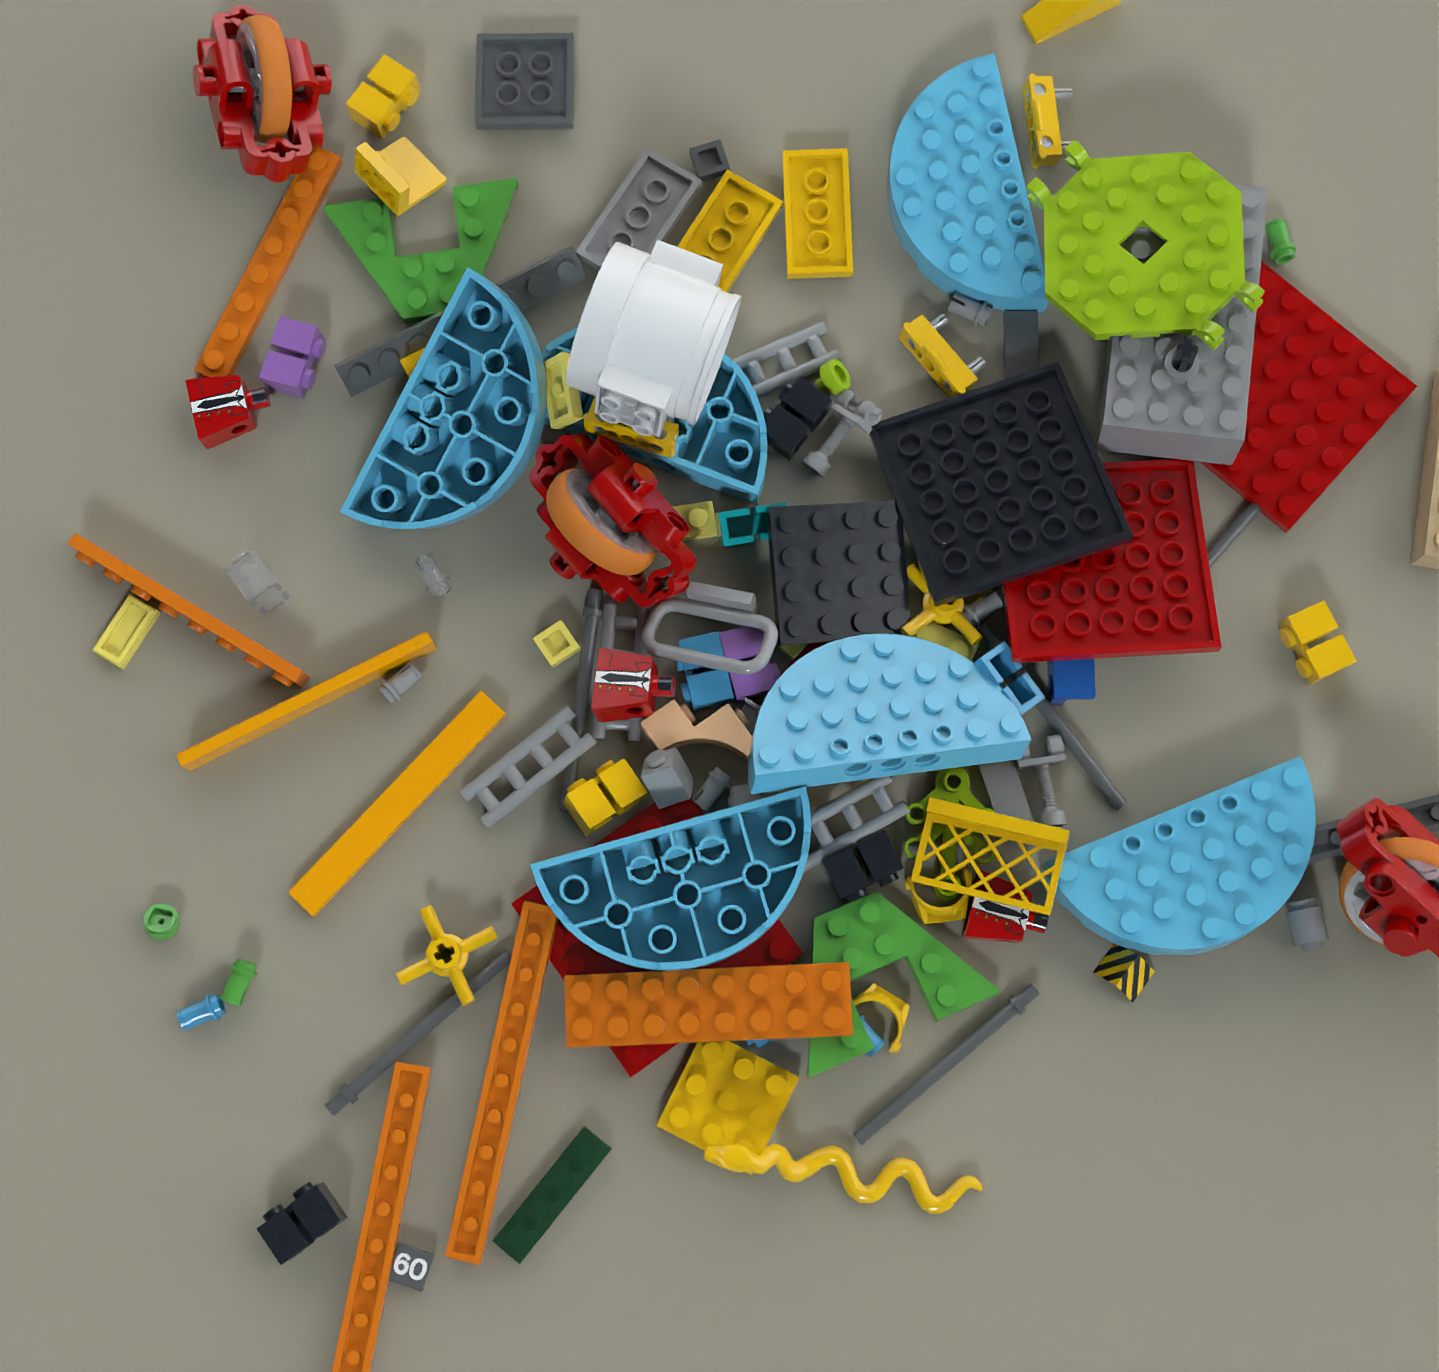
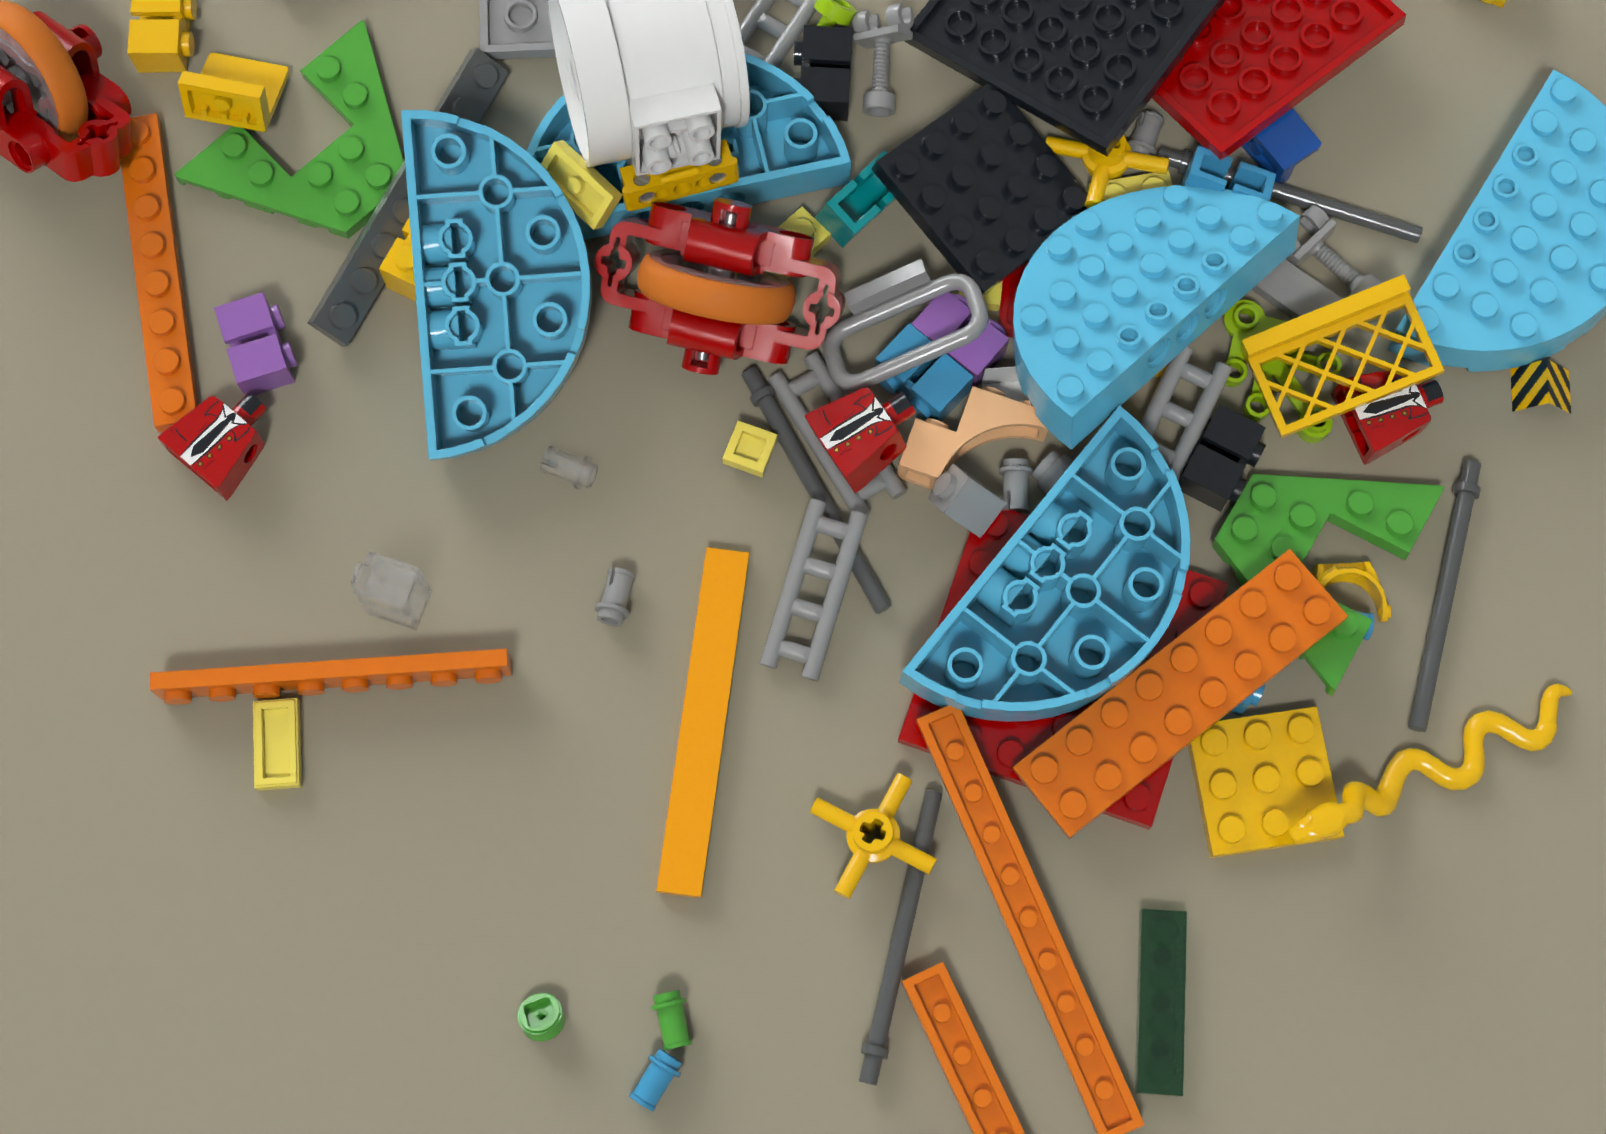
camera: 40 degrees left, 5 degrees down
(306, 701) = (530, 682): light orange tile -> none
(608, 794) = (916, 563): yellow piece -> none
(931, 914) = (1320, 459): yellow helmet -> none

